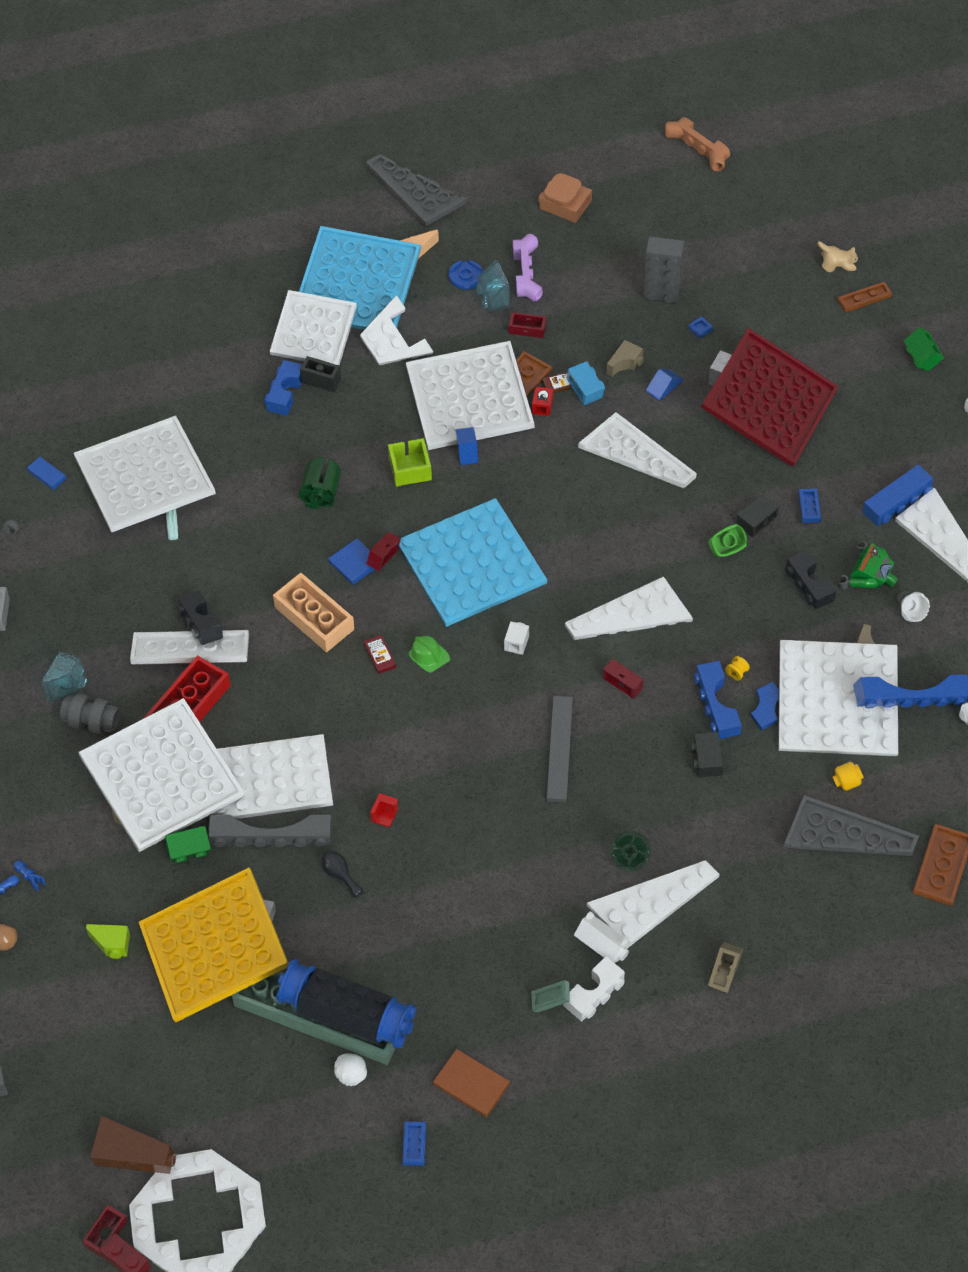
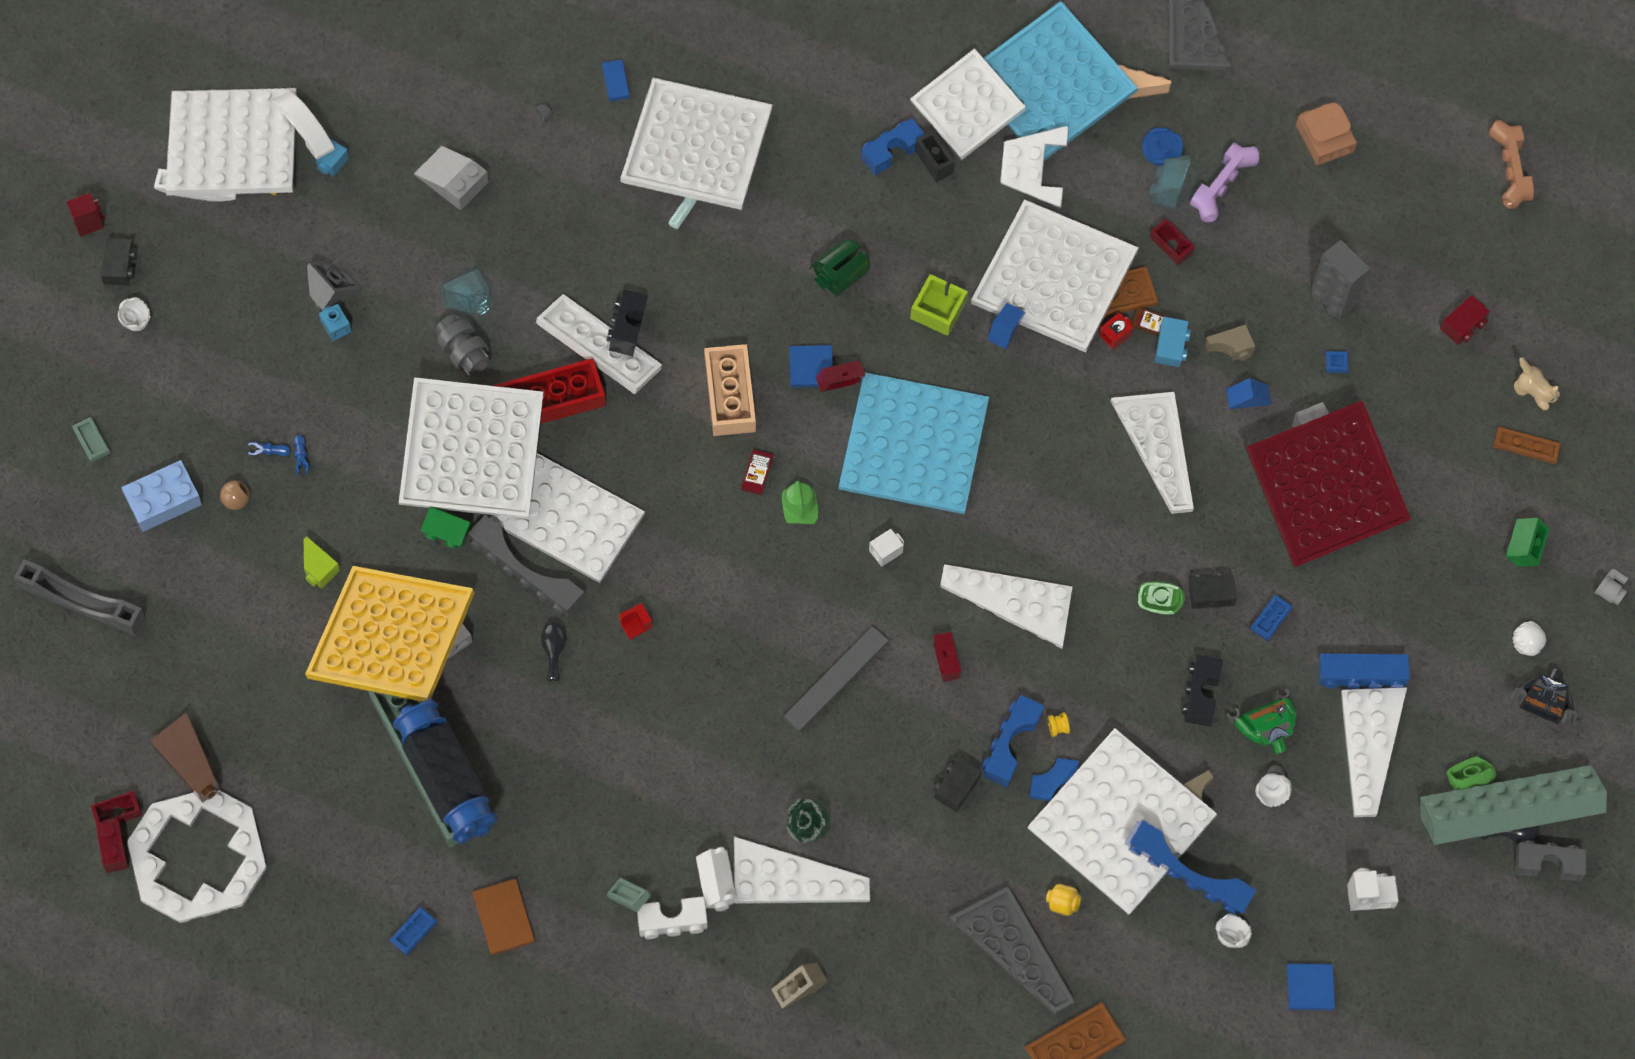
camera: 35 degrees right, 10 degrees up
(350, 1069) = (416, 827): white hair -> none
(757, 249) = (1465, 320): none -> dark red brick

